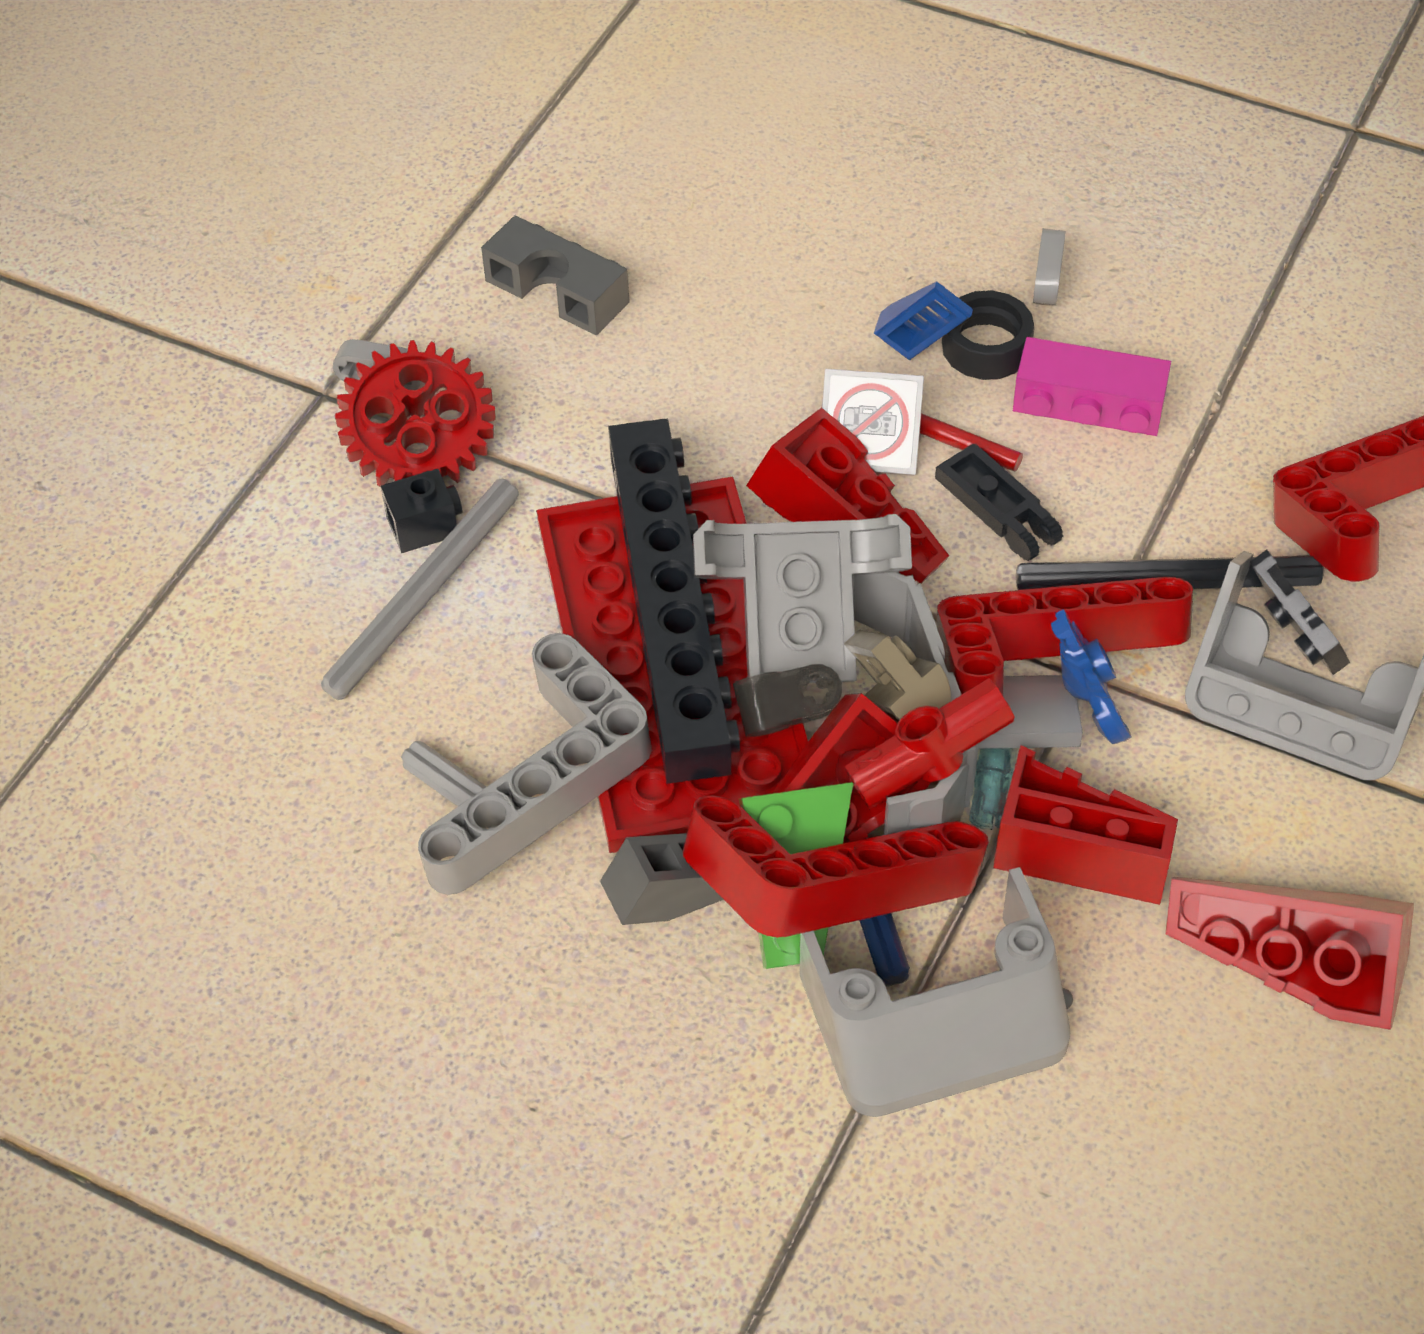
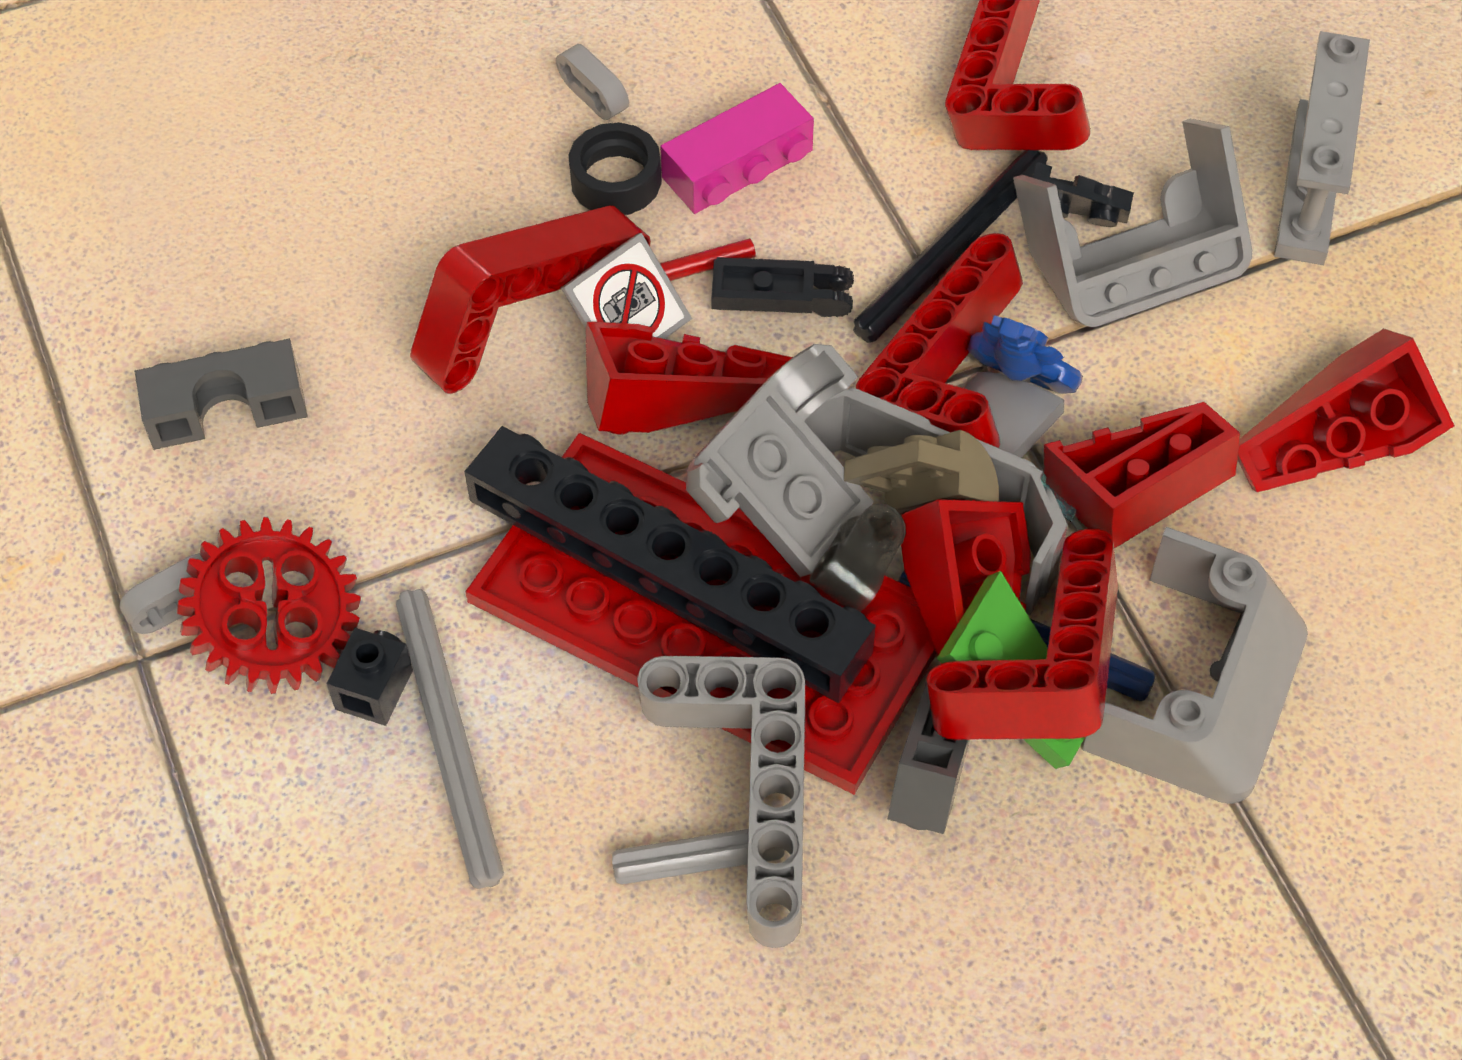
camera: 50 degrees left, 5 degrees up
(813, 331) = (500, 271): none -> red beam
(913, 339) = (571, 187): blue slope -> none
(929, 743) = (1026, 463): red piece -> none

